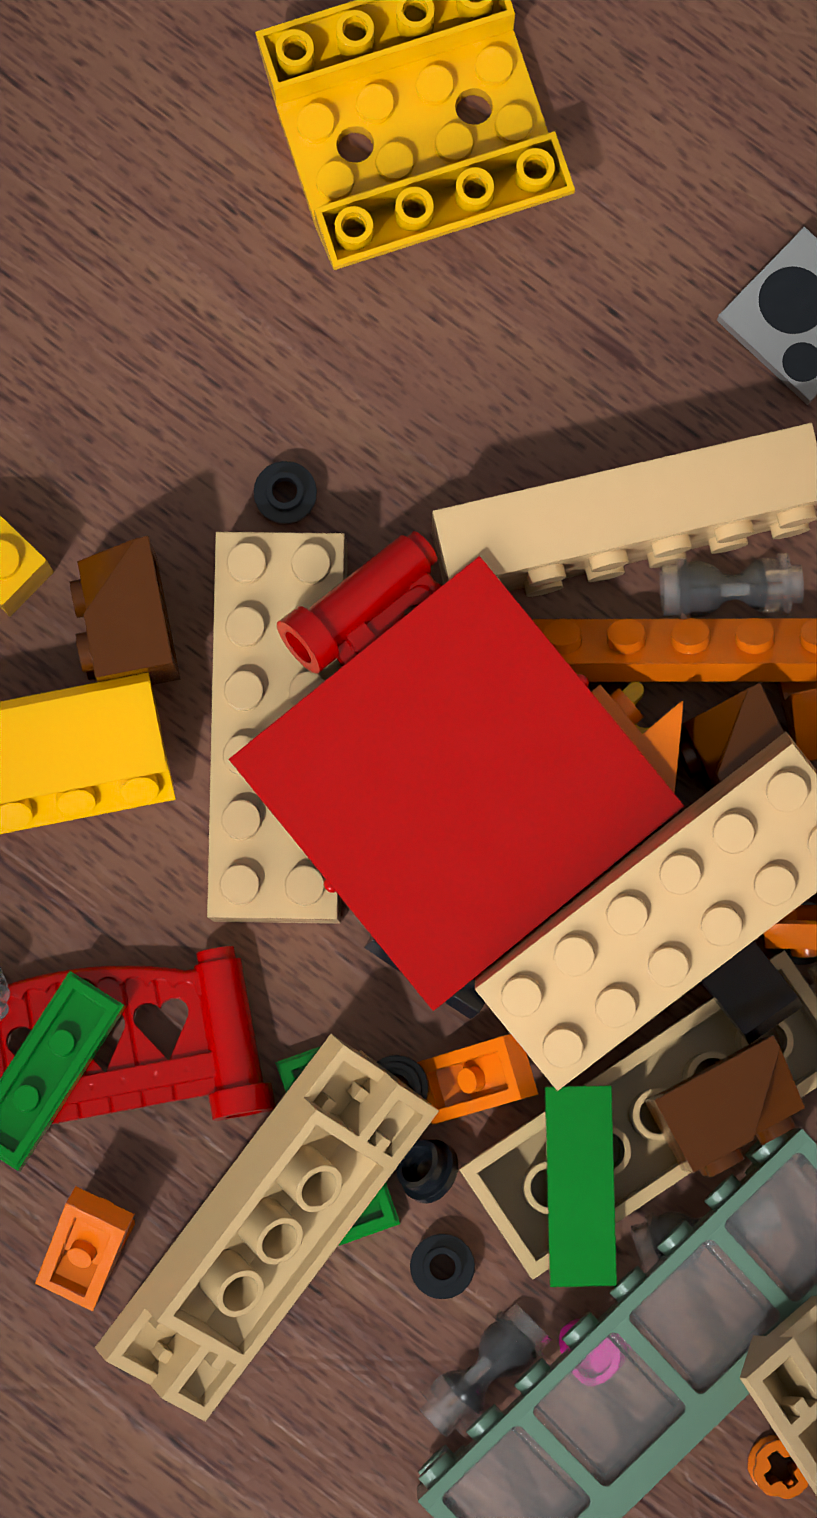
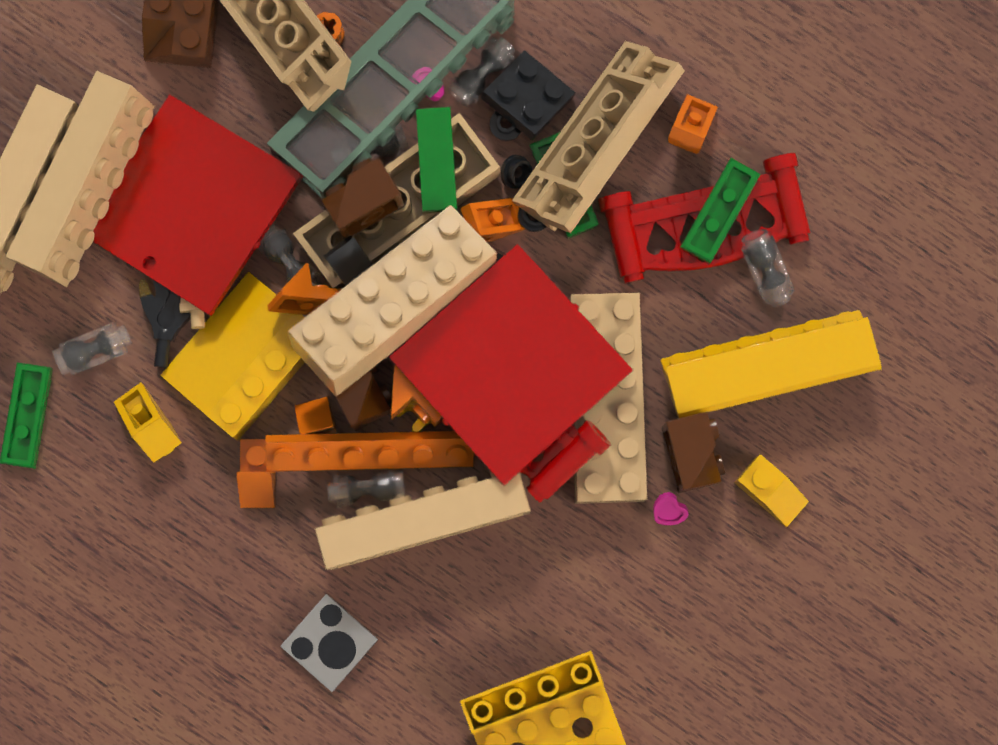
camera: 175 degrees left, 0 degrees up
(176, 522) = (668, 510): none -> dark pink piece
(288, 512) = (602, 537): black plate -> none
(398, 1318) = (528, 95): none -> black plate

